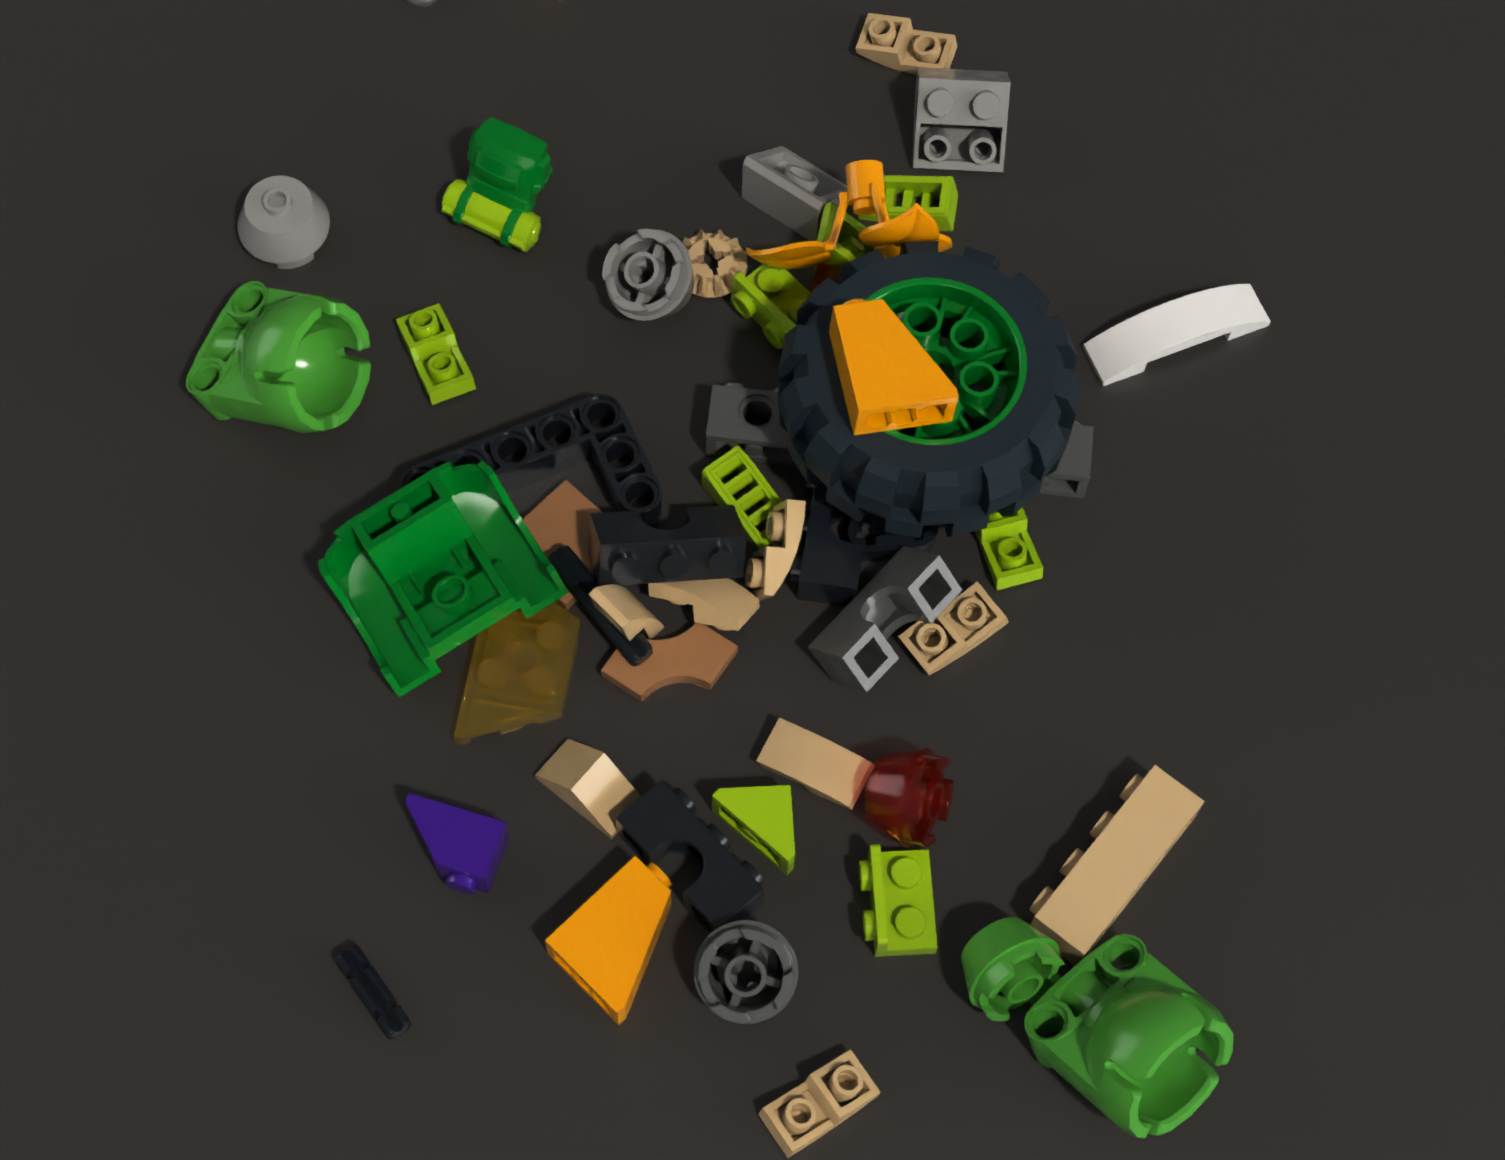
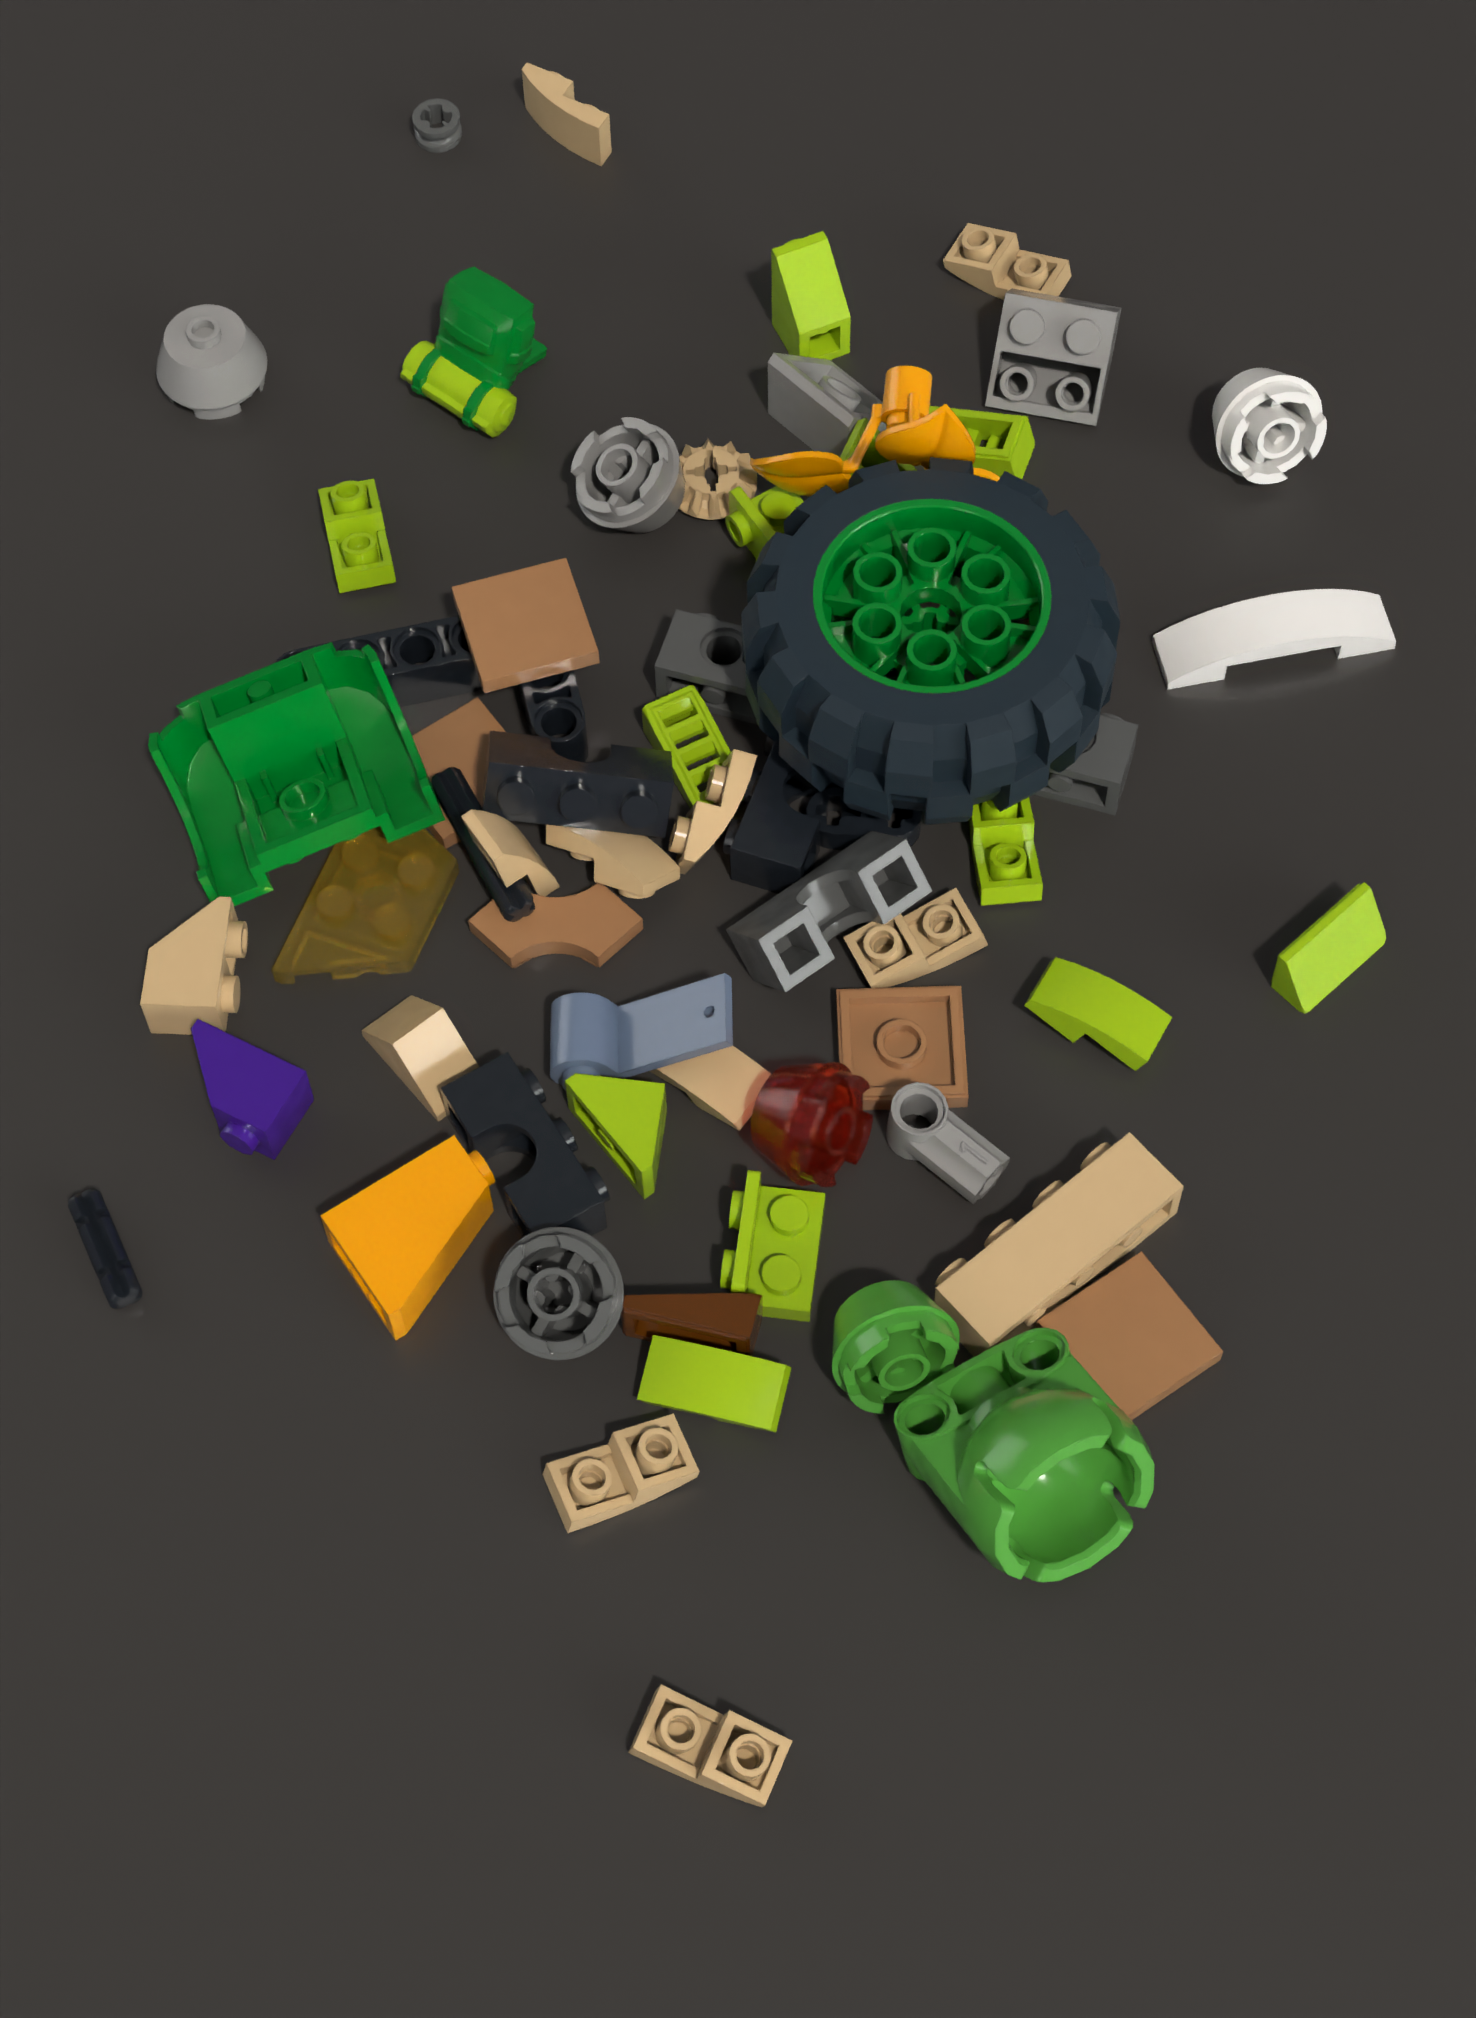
camera: 15 degrees right, 5 degrees down
(282, 360) = (170, 511): bright green piece -> none
(391, 751) = (193, 971): none -> tan slope
(597, 418) = (525, 625): none -> medium nougat tile
(737, 753) = (622, 1041): none -> sand blue door
(760, 102) = (809, 299): none -> lime slope
(860, 973) = (706, 1319): none -> reddish brown slope
(877, 1020) = (714, 1383): none -> lime slope
(886, 371) = (869, 595): light orange slope -> none
(962, 716) = (903, 1039): none -> medium nougat tile
(1017, 795) = (947, 1146): none -> light grey piece
(1101, 661) = (1089, 1003): none -> lime slope
(1140, 156) = (1267, 424): none -> white cone
(1185, 923) = (1134, 1336): none -> medium nougat tile
(1271, 587) = (1329, 950): none -> lime slope

